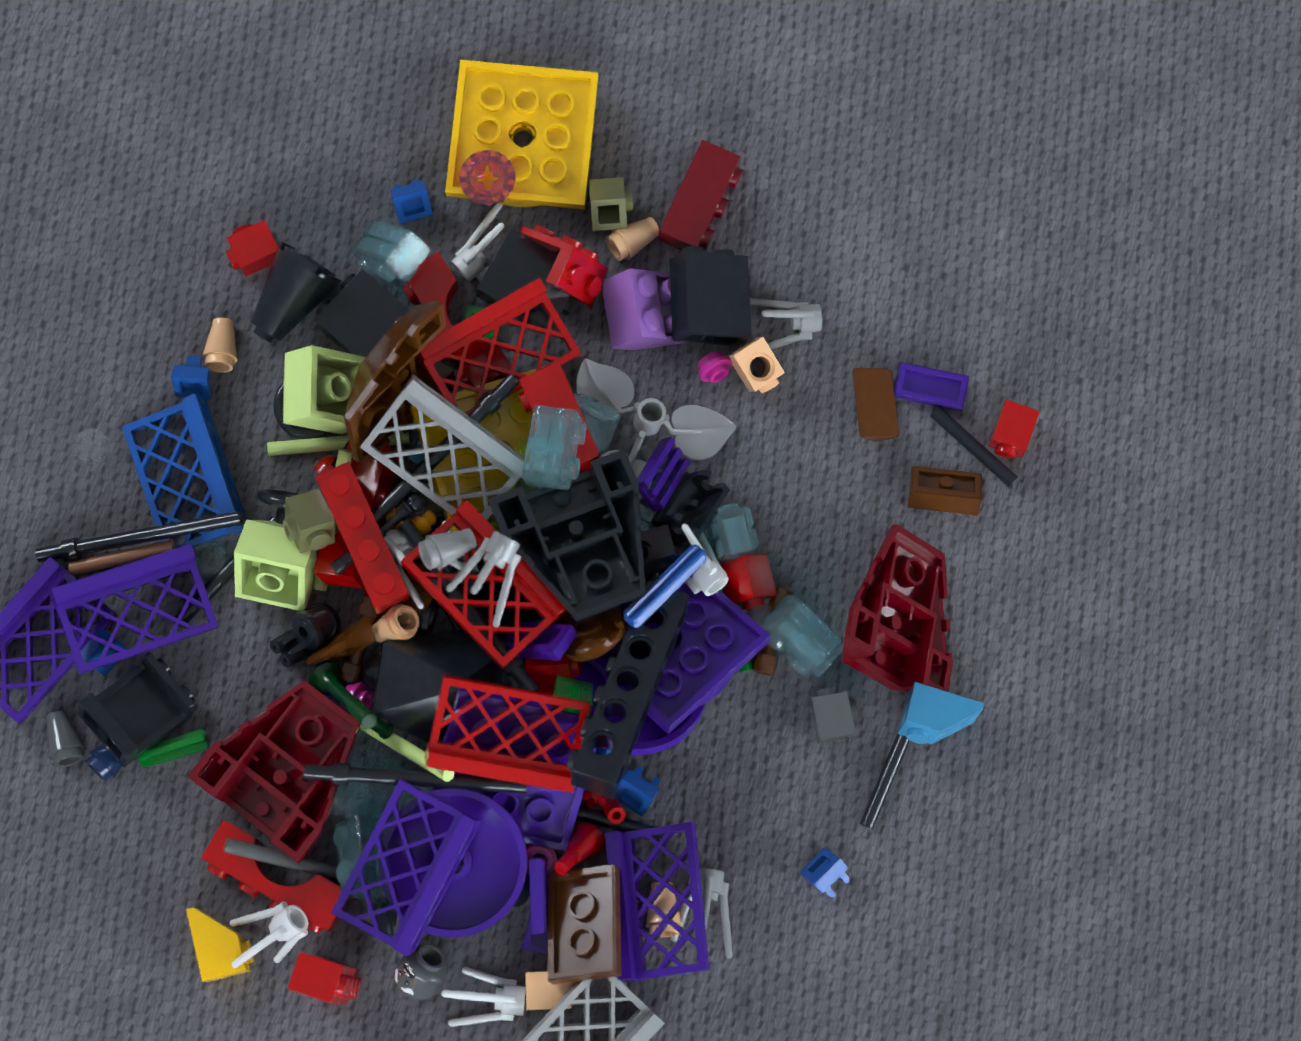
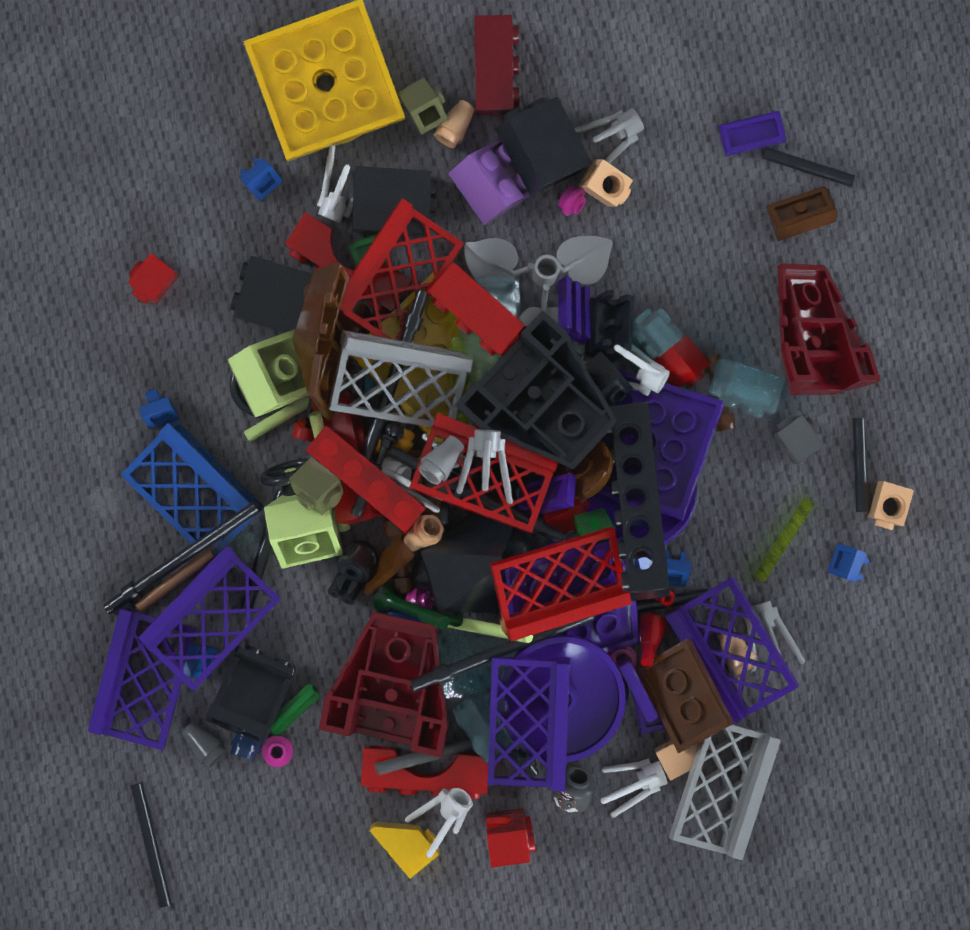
camera: 25 degrees left, 10 degrees up
(144, 789) = (282, 742): none -> dark pink plate
(220, 346) = (166, 372): light nougat cone -> none
(290, 292) = (202, 302): black cone -> none
(389, 251) = (266, 231): clear light blue brick -> none
(475, 167) = (321, 118): clear pink gear -> none
(553, 447) = (486, 337): clear light blue brick -> none
(575, 267) = (427, 175): red bracket -> none
(665, 586) = (627, 404): blue axle -> none
(769, 817) = (784, 539): none -> clear neon green bar
(875, 404) = (715, 169): reddish brown slope -> none
(909, 820) = (902, 498): none -> light nougat brick
(935, 714) = (876, 399): dark azure slope -> none
(1013, 430) = (836, 139): red brick -> none

